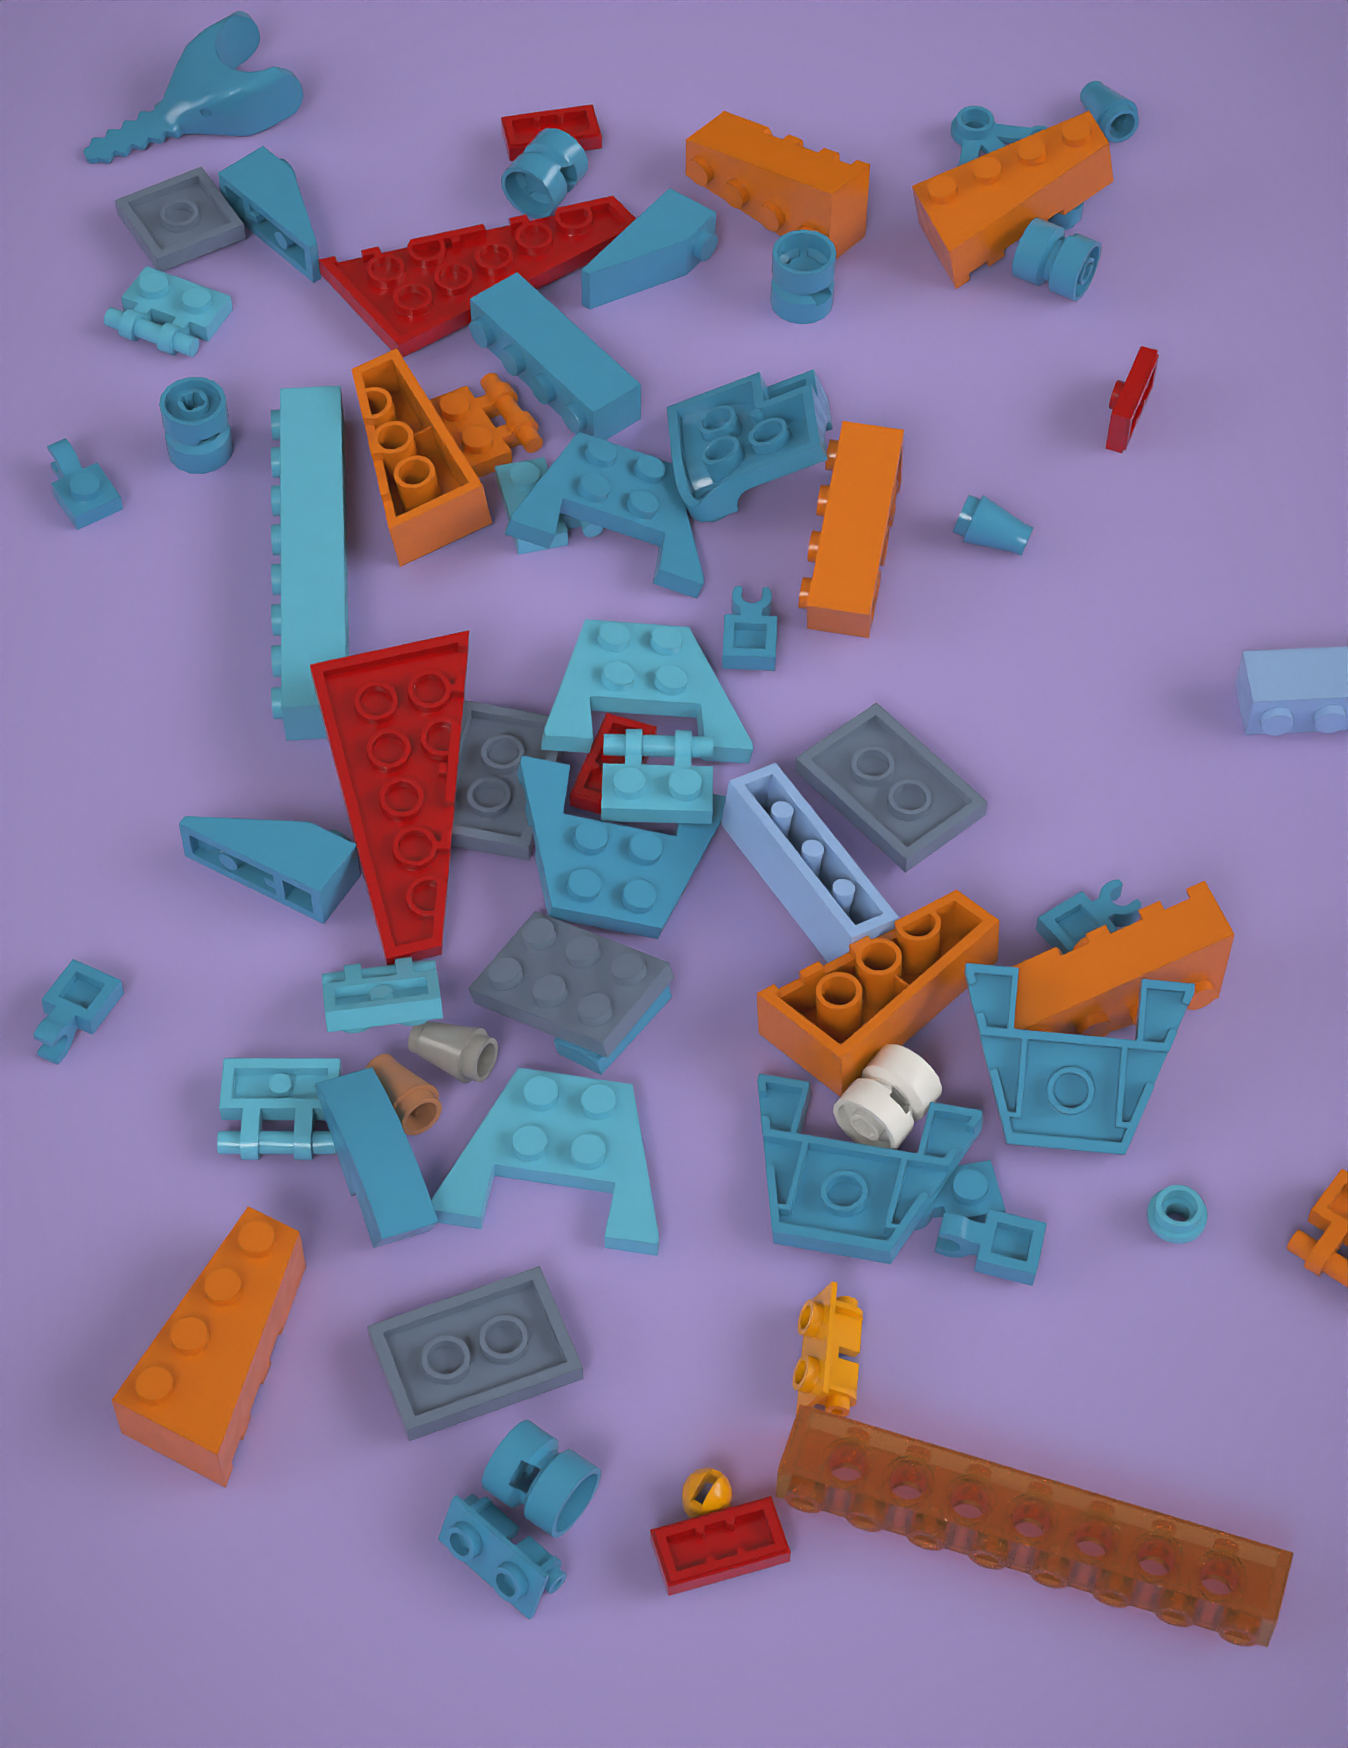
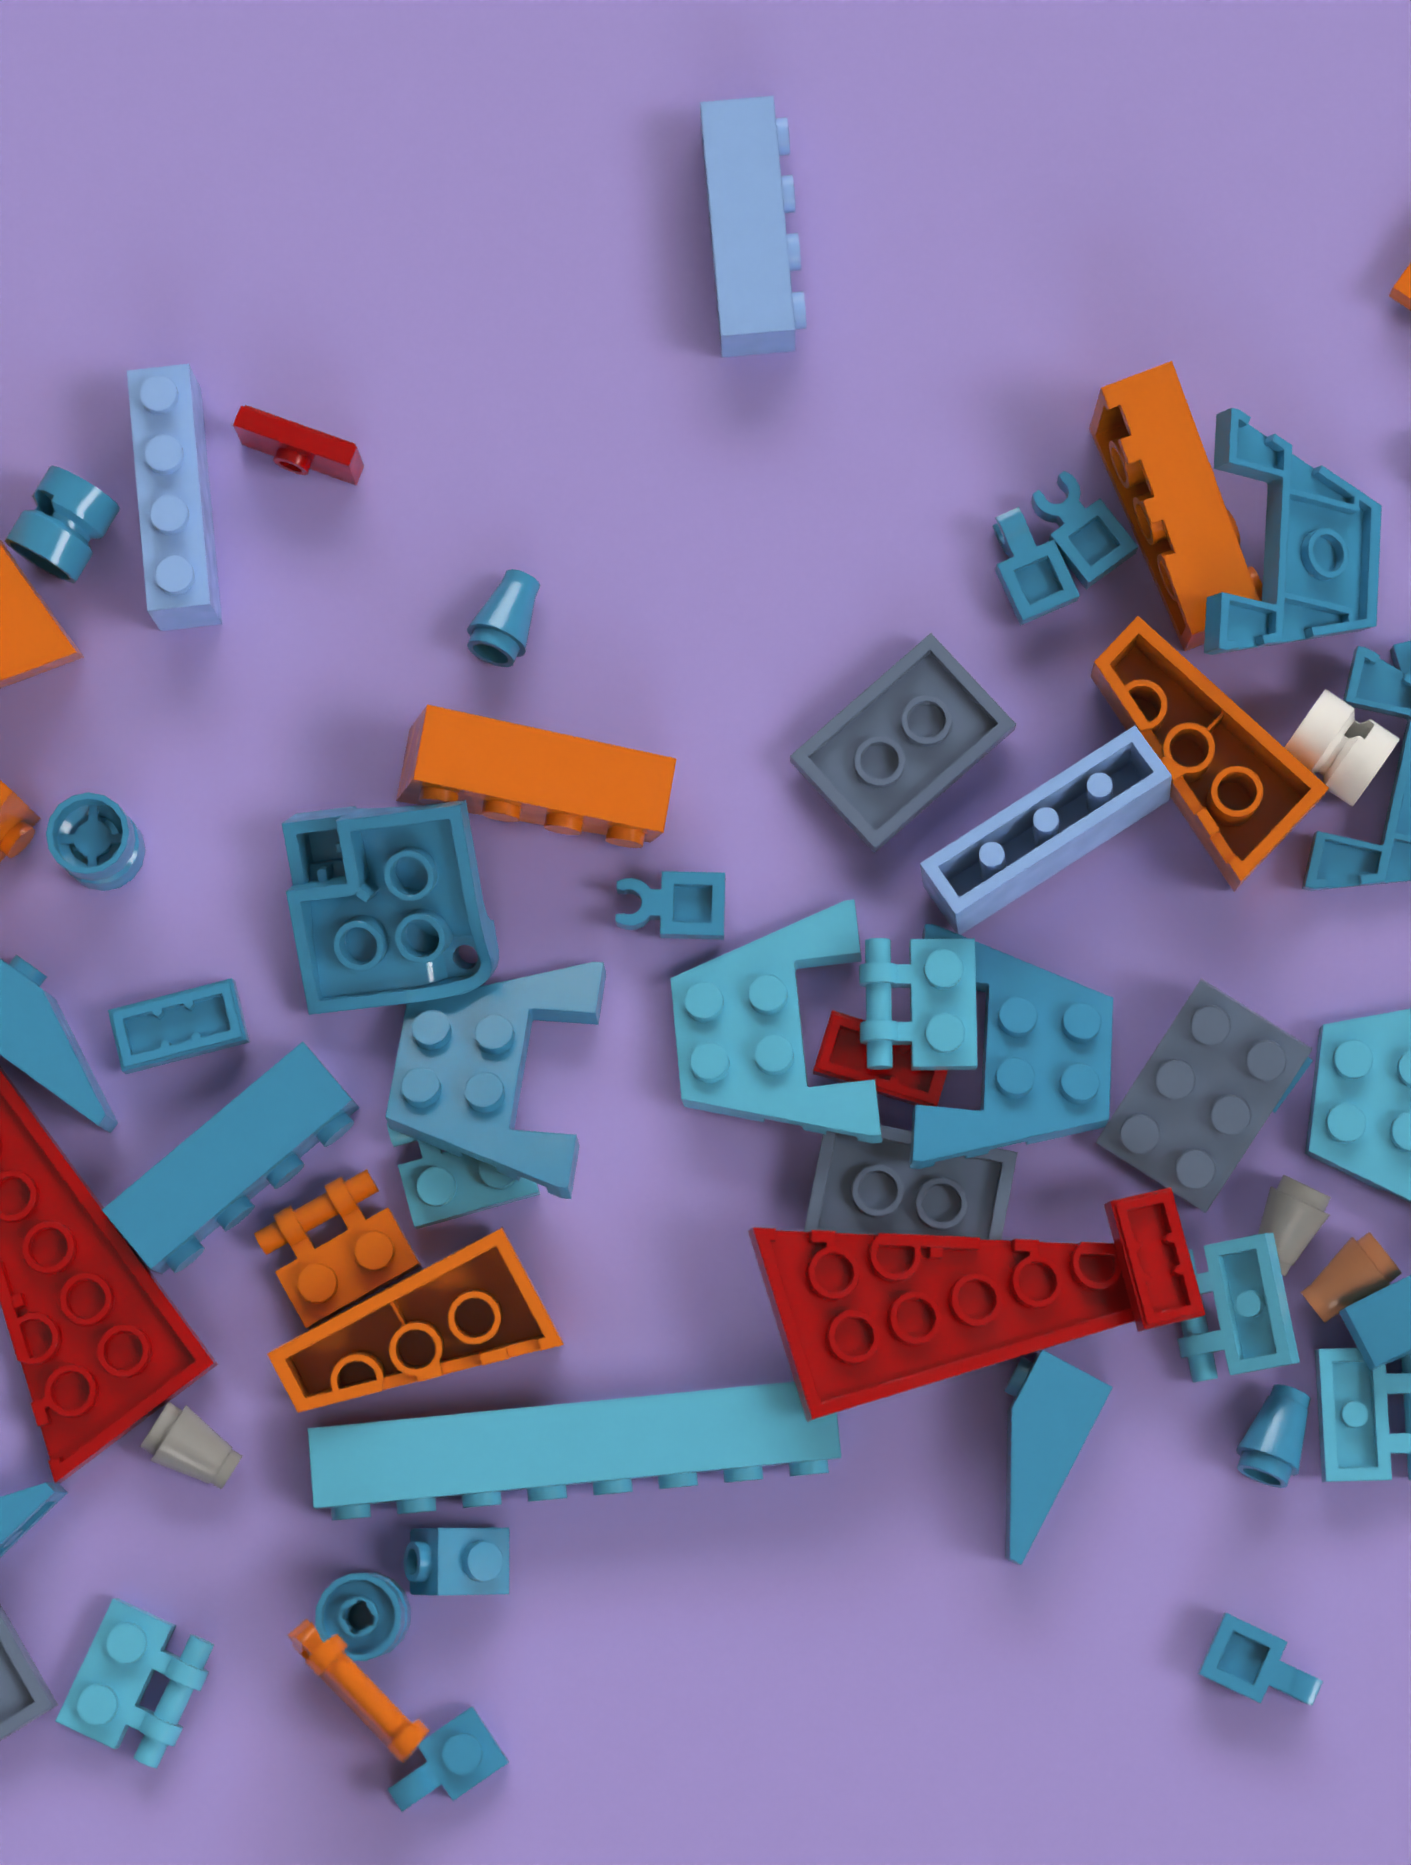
camera: 85 degrees left, 25 degrees up
(125, 402) = (358, 1691): none -> orange piece
(231, 490) = (457, 1561): none -> dark azure bracket
(266, 1029) = (1275, 1438): none -> dark azure cone
(340, 334) = (190, 1446): none -> light grey cone
(426, 927) = (1154, 1259): none -> red plate
(660, 333) = (178, 1026): none -> dark azure plate
(1045, 882) = (1034, 575): none -> dark azure plate
(1081, 323) = (174, 497): none -> light blue brick

